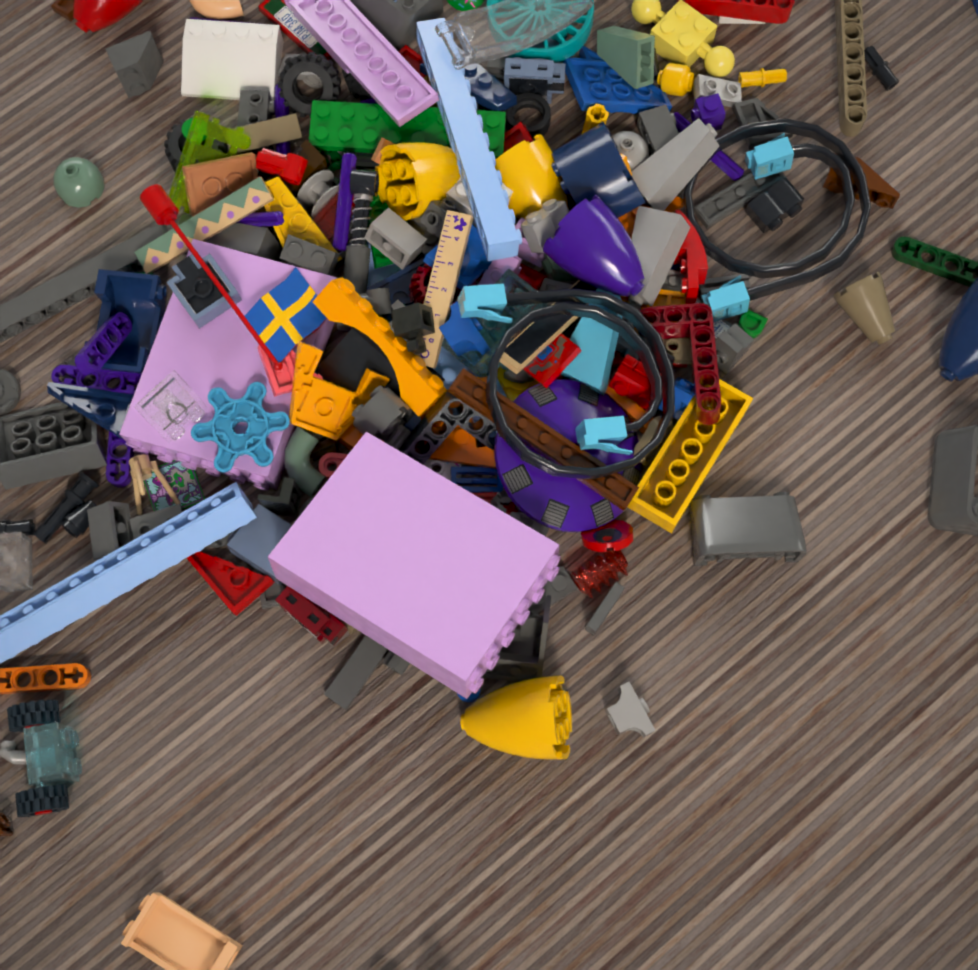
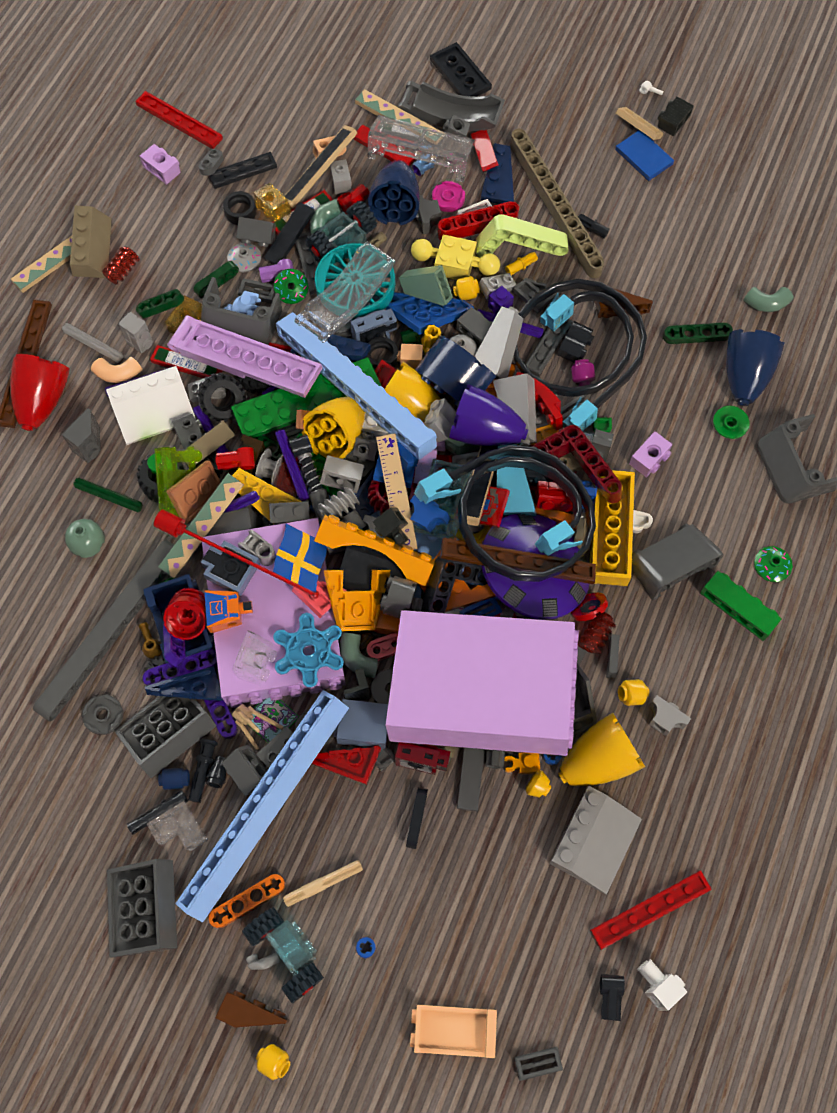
camera: 30 degrees left, 5 degrees down
(30, 502) = (174, 778): none -> dark blue brick
(87, 331) = (156, 650): none -> pearl gold bar
(128, 702) = (322, 883): none -> tan axle
(130, 144) = (108, 495): none -> dark green axle
(130, 320) = (186, 614): none -> red wheel
(139, 790) = (363, 941): none -> blue bush
(171, 335) = (225, 610): none -> torso
(246, 279) = (257, 546): none -> light grey piece
(271, 682) = (416, 818): none -> black beam
(369, 273) = (338, 504): none -> light grey piece
(429, 685) = (526, 763): none -> light orange plate
(430, 716) = (538, 785): none -> yellow cone
(463, 815) = (596, 840): none -> light grey slope
(483, 929) = (650, 910): none -> red tile
(561, 131) = (410, 354): none -> light nougat brick
(572, 114) = (410, 337): none -> dark green tile
(604, 664) = (633, 692): none -> yellow head
(731, 462) = (641, 521): none -> white tile
(762, 247) = (583, 372): none -> magenta head
(781, 40) = (520, 232): none -> yellowish green beam
(798, 624) = (741, 605): none -> green brick
(800, 376) = (653, 445): none -> lavender brick
(863, 602) = (770, 571): none -> green dish
(868, 307) = (672, 381): dark tan cone -> none
(921, 383) = (733, 416): none -> green dish

